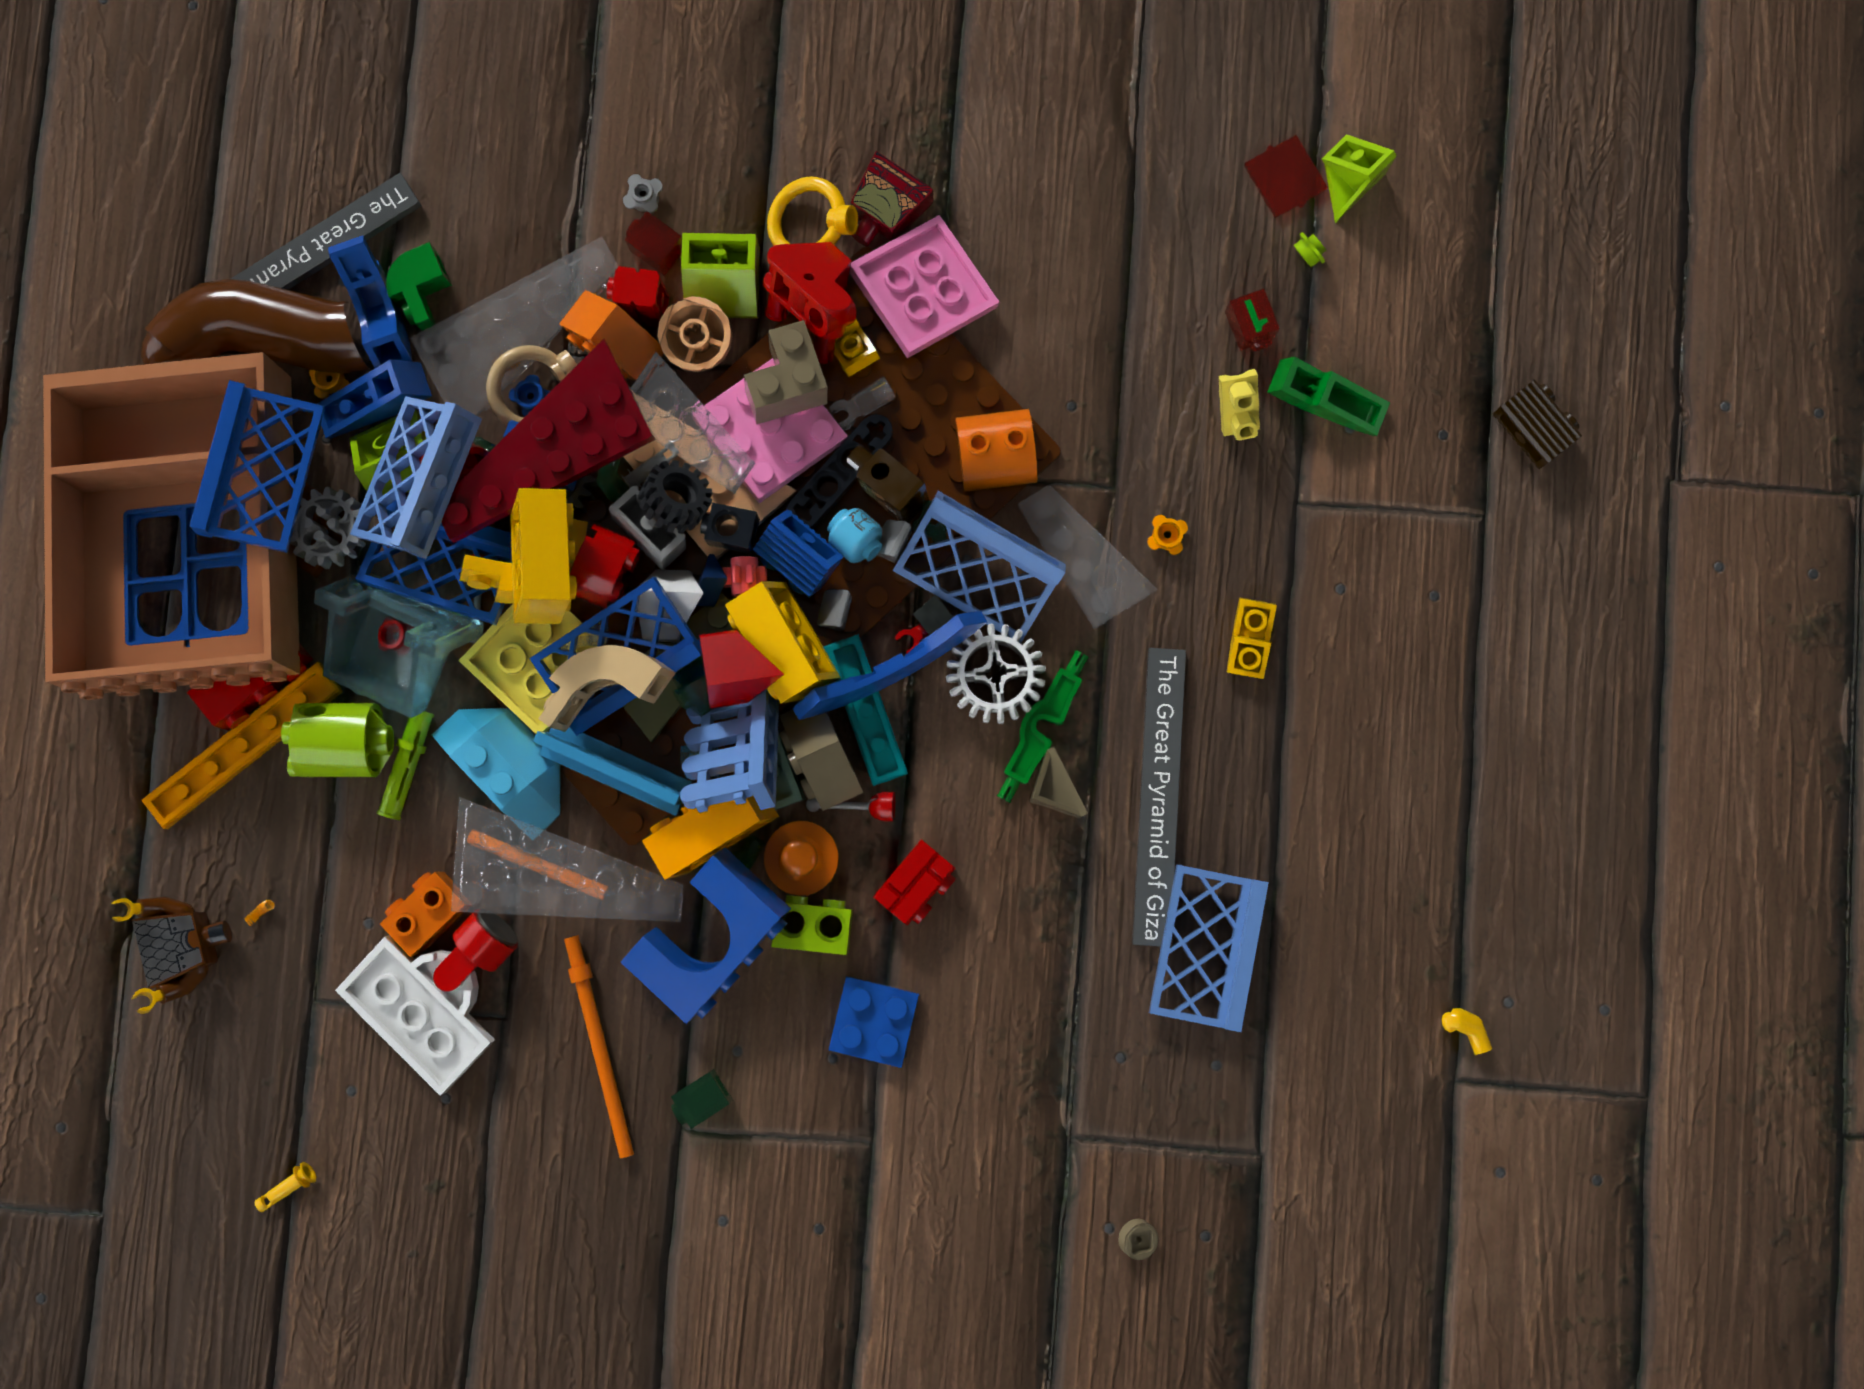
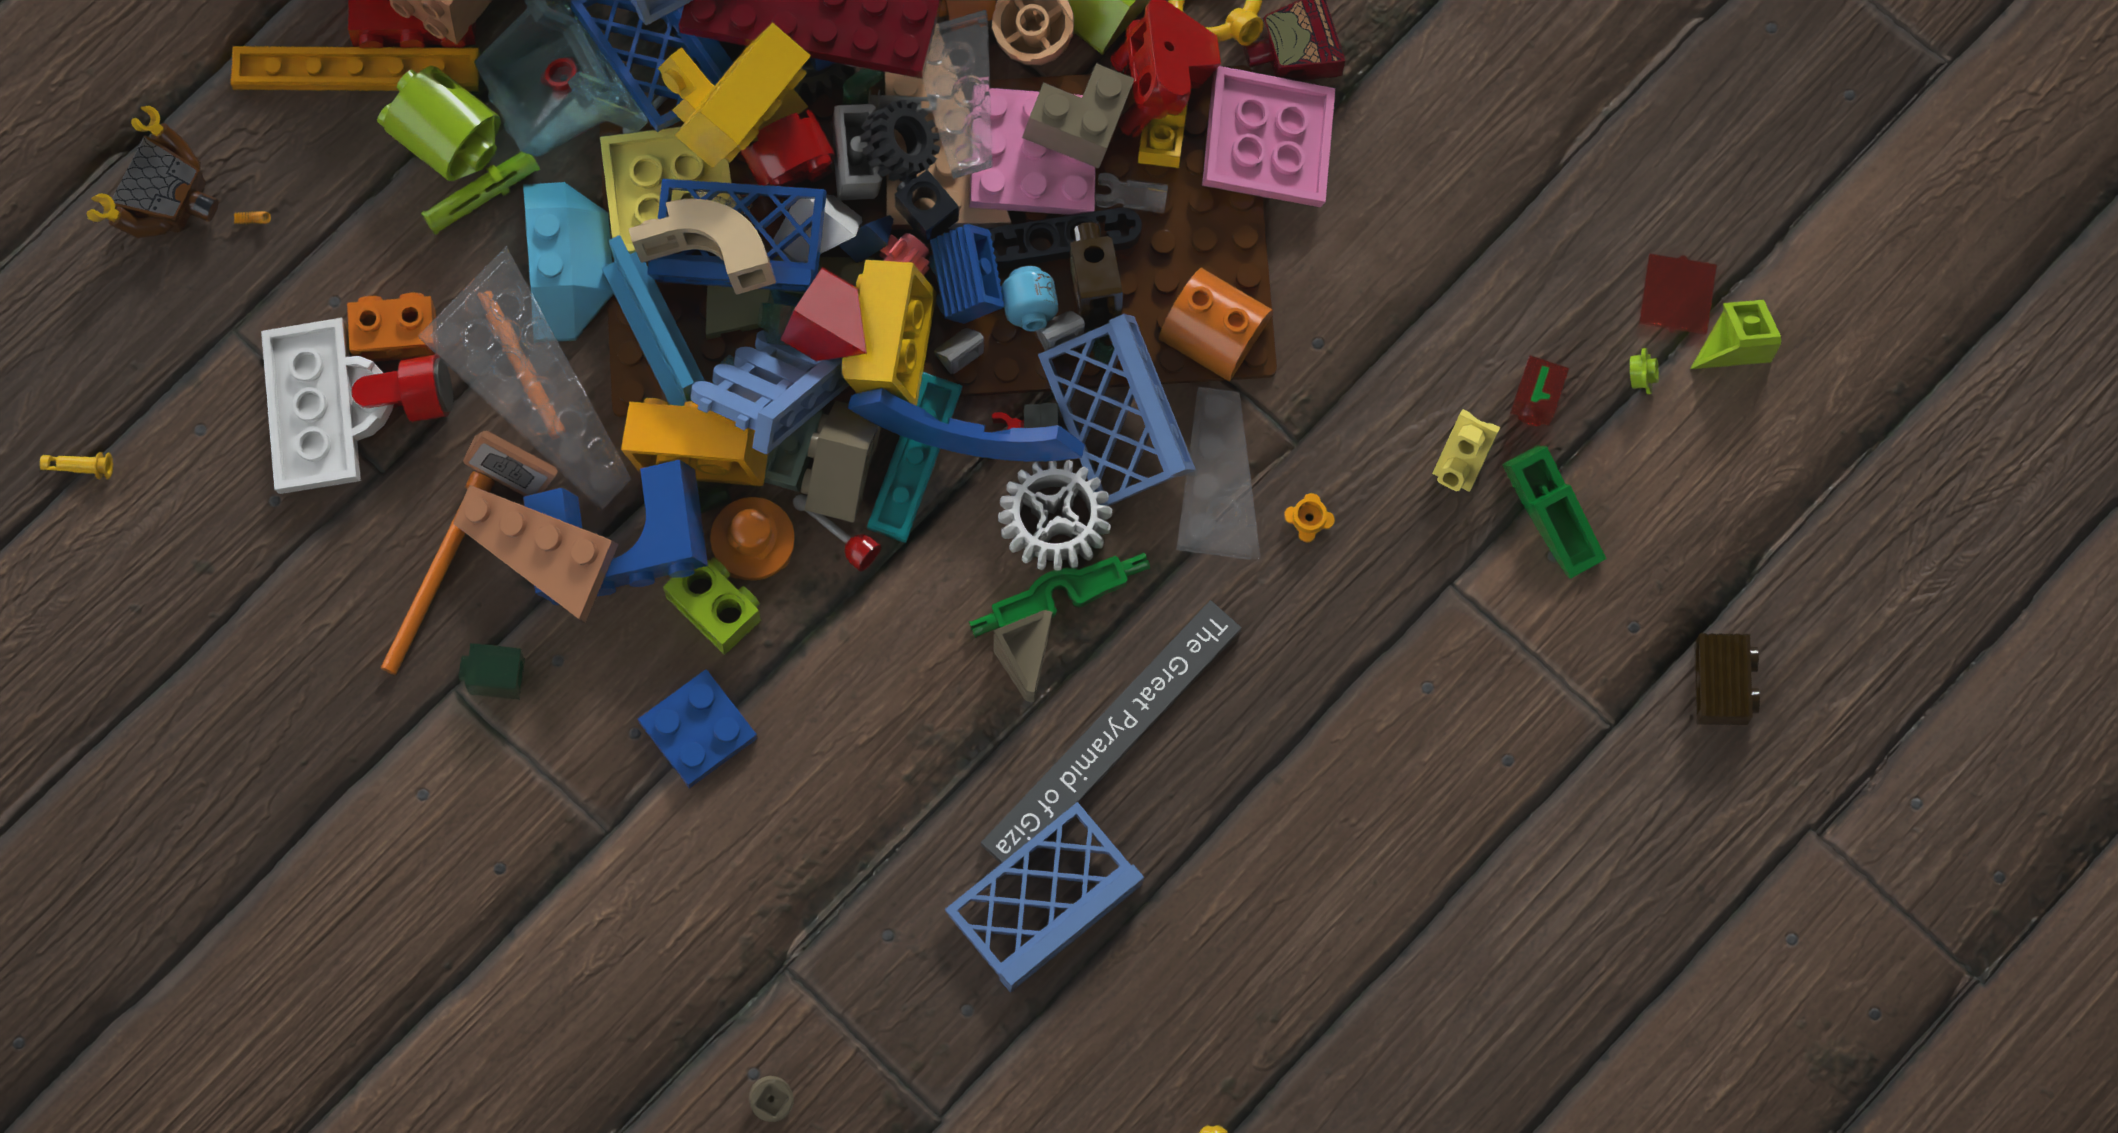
camera: 30 degrees right, 10 degrees down
(590, 946) = (509, 464): none -> slope
(671, 990) = (544, 550): none -> nougat wing
(915, 883) = (834, 637): red brick -> none
(1251, 638) = (1309, 664): yellow slope -> none

